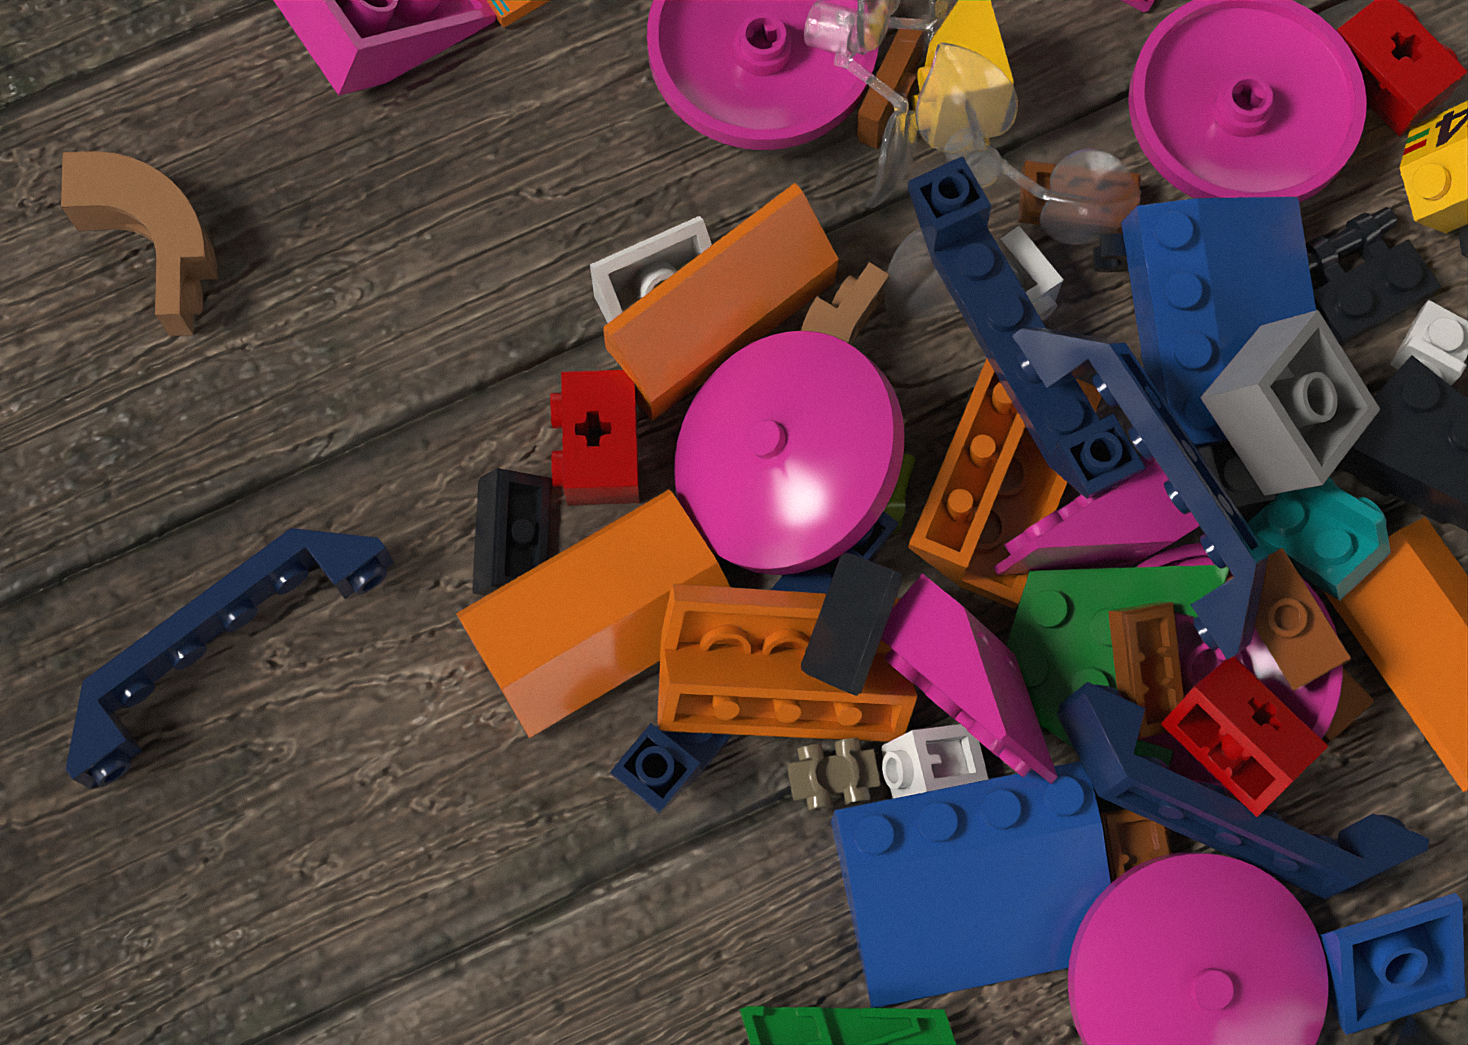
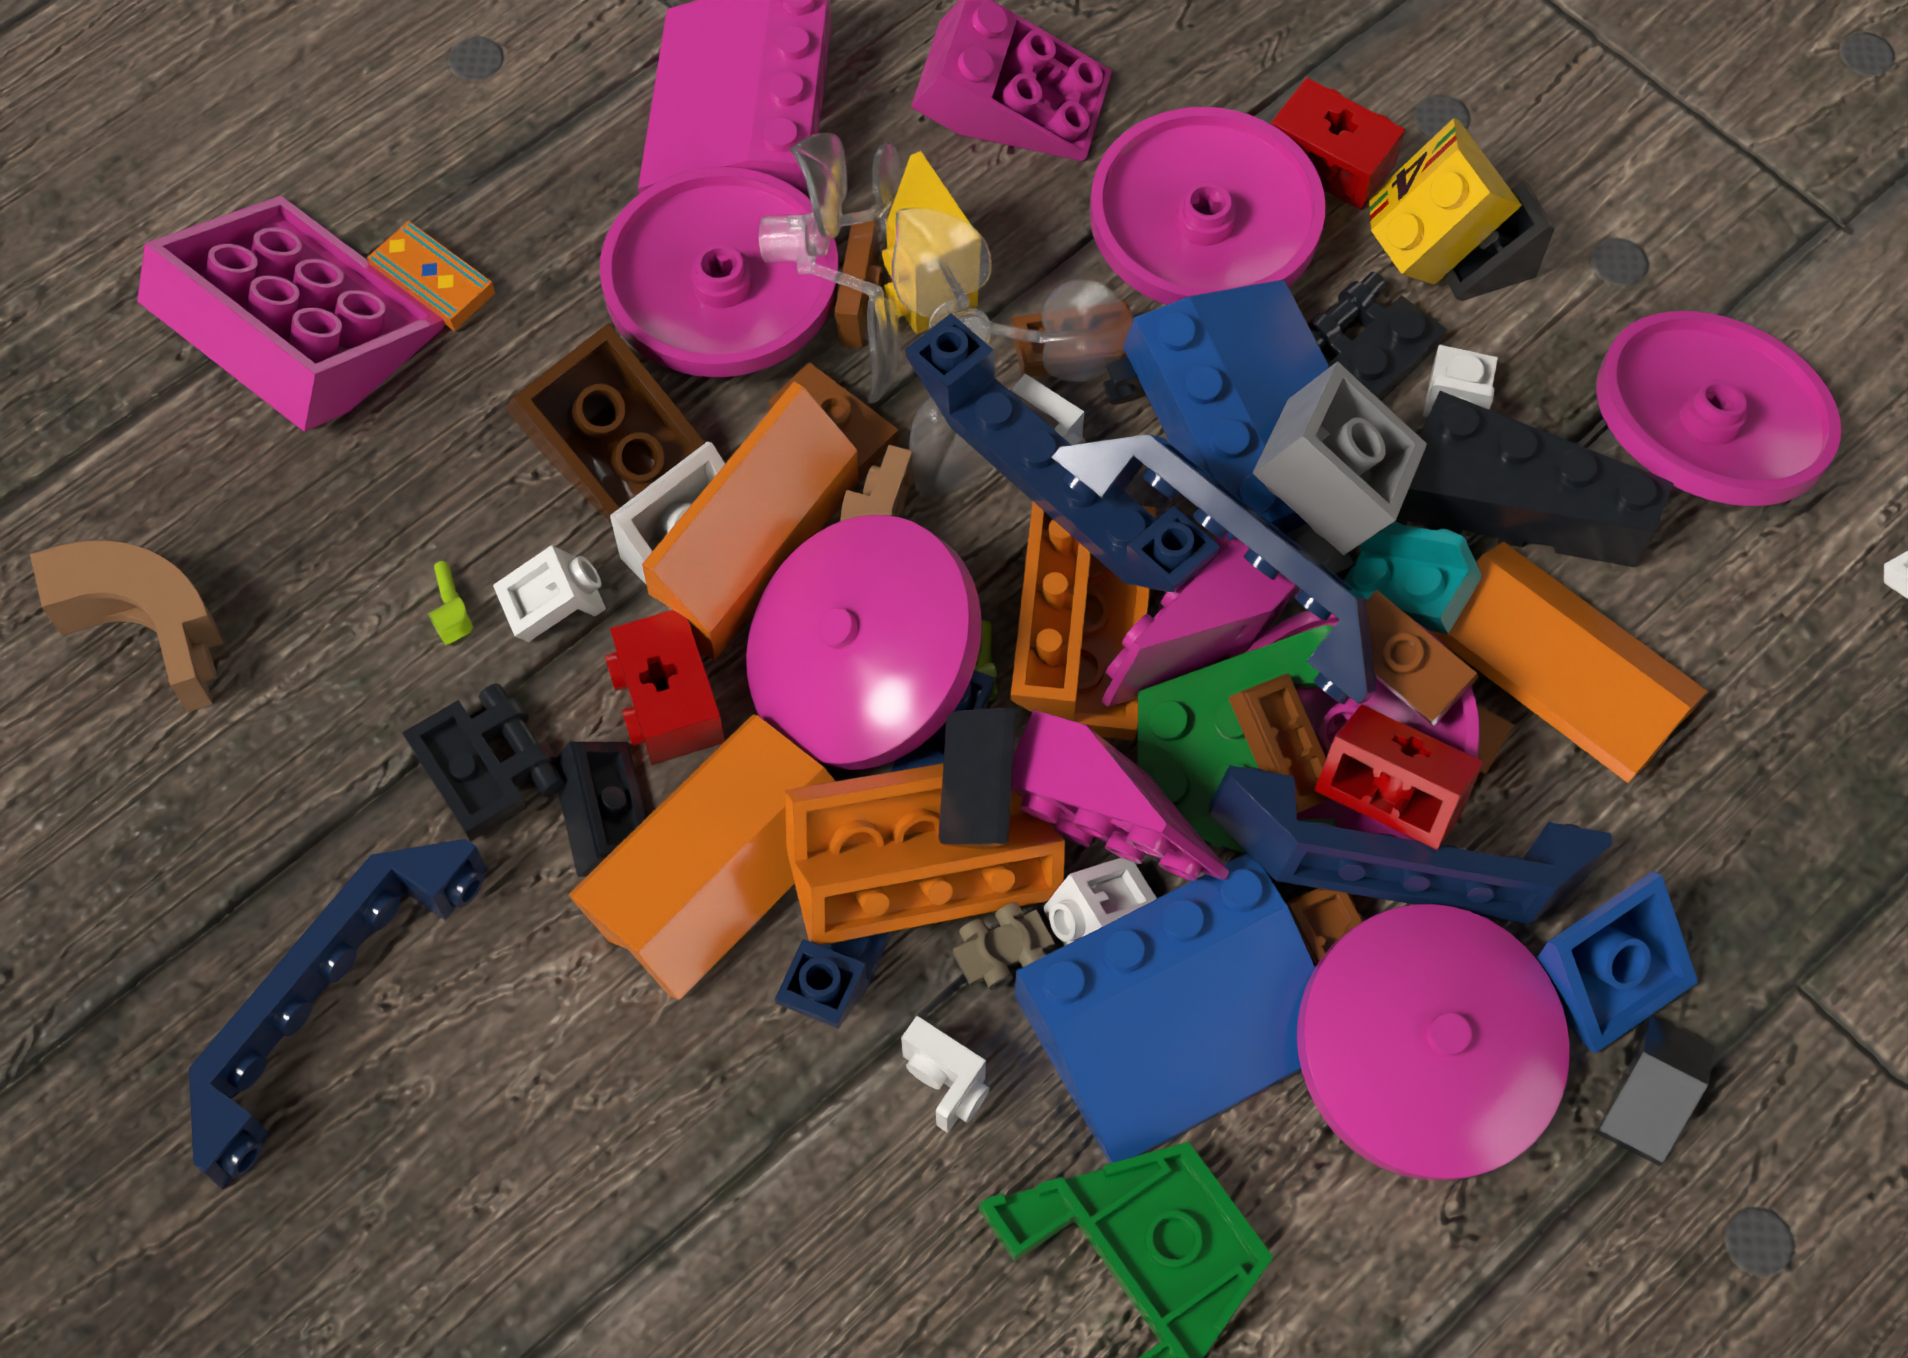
camera: 15 degrees left, 10 degrees down
(398, 464) = (467, 772): none -> black plate
(425, 315) = (451, 618): none -> lime hand
(518, 315) = (548, 591): none -> white bracket
(616, 167) = (604, 422): none -> reddish brown slope
(744, 866) = (940, 1060): none -> white bracket
(837, 212) = (857, 421): none -> dark orange plate

